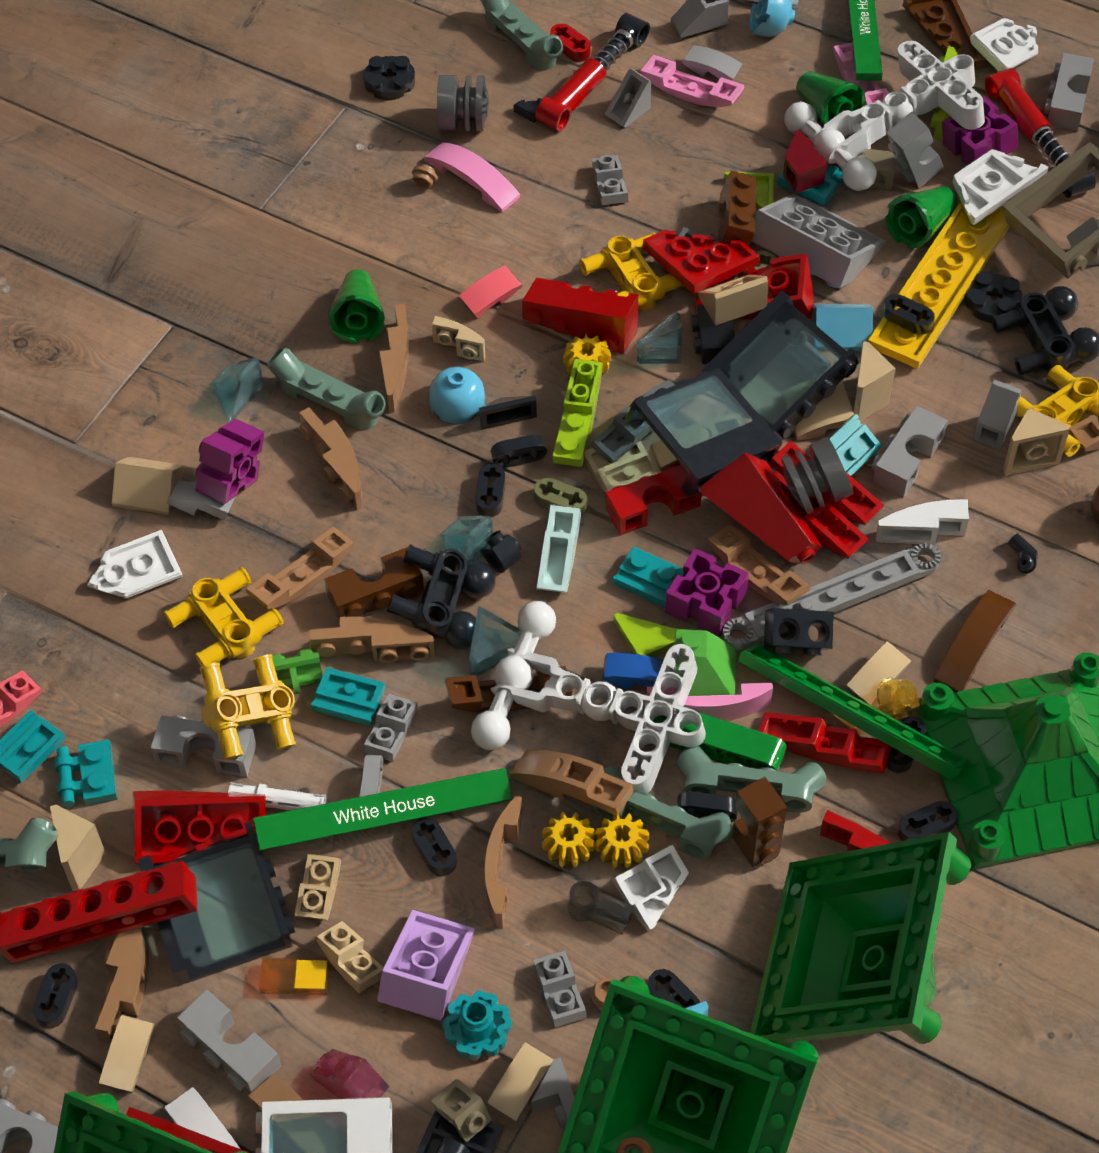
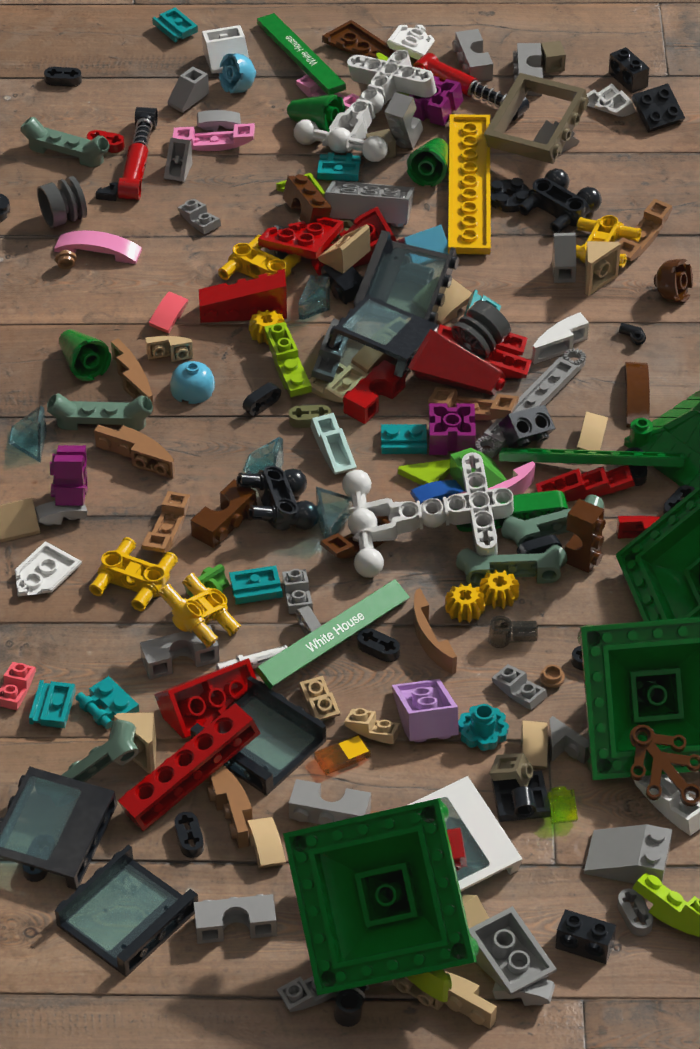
camera: 30 degrees left, 10 degrees down
(348, 1076) = (421, 785): clear pink slope -> none
(383, 637) = (252, 541): medium nougat slope -> none
(485, 490) = (255, 431): black beam -> none
(501, 551) = (295, 458): black plate -> none
(507, 411) = (236, 378): black slope -> none
(572, 776) = (438, 563): medium nougat slope -> none
(652, 885) = (536, 605): white slope -> none
(803, 164) = (332, 157): dark red slope -> none
(873, 382) = (471, 266): tan slope -> none
(897, 697) = (614, 438): clear yellow plate -> none
(908, 314) = (465, 221): black beam -> none
(917, 432) = (520, 301): light grey arch -> none
(993, 182) = (465, 124): white wing -> none

